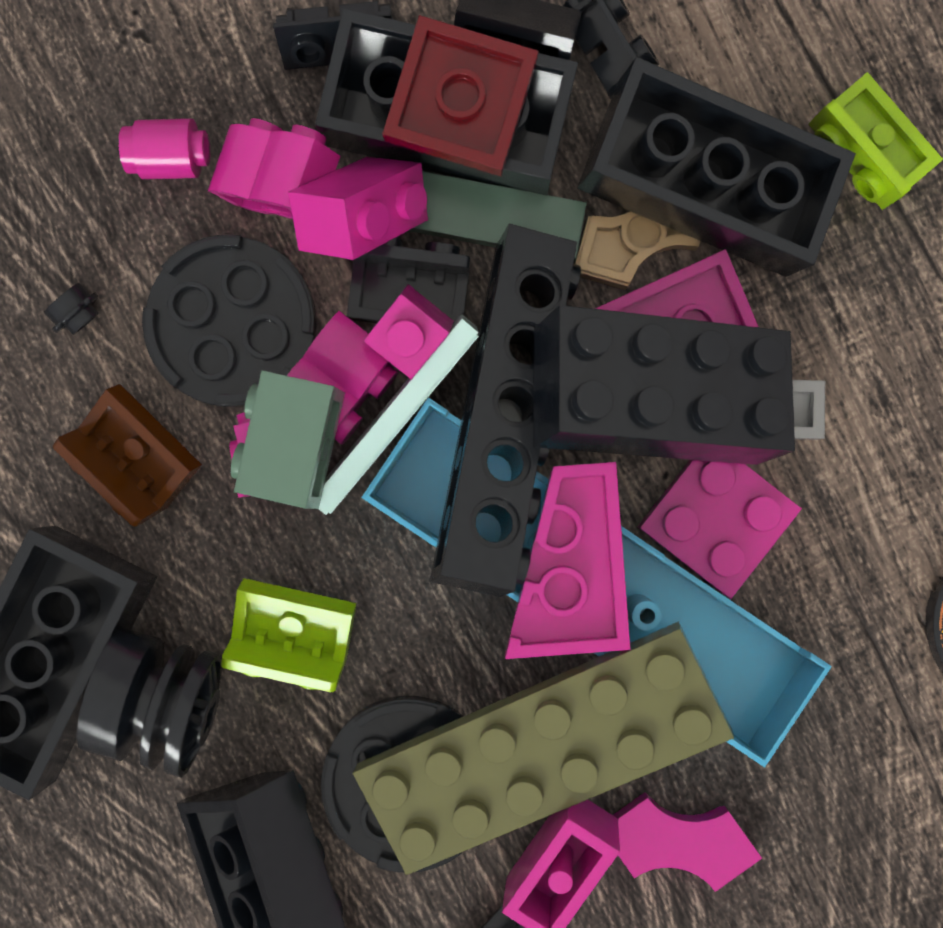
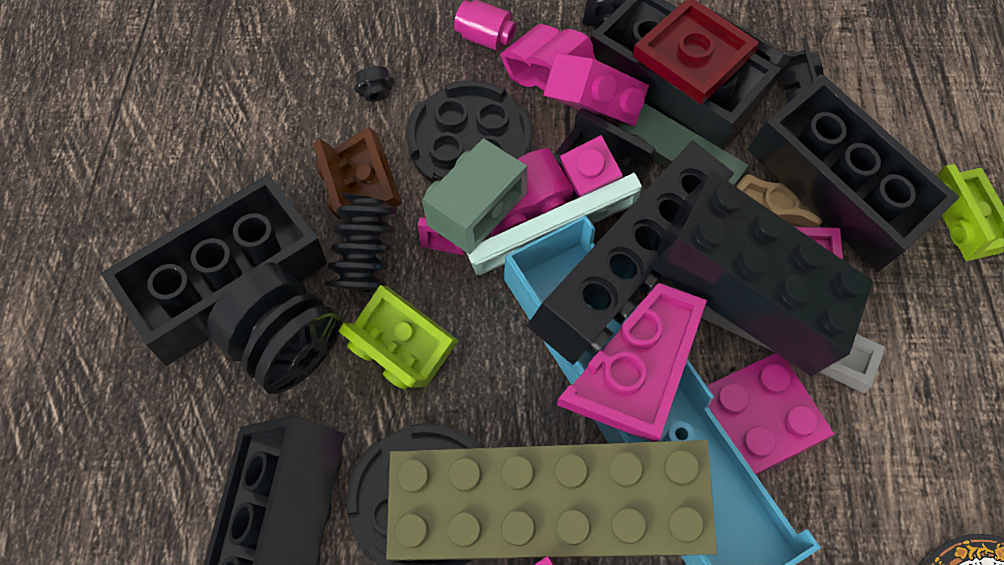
camera: 25 degrees right, 25 degrees down
(191, 548) = (361, 243): none -> black piece

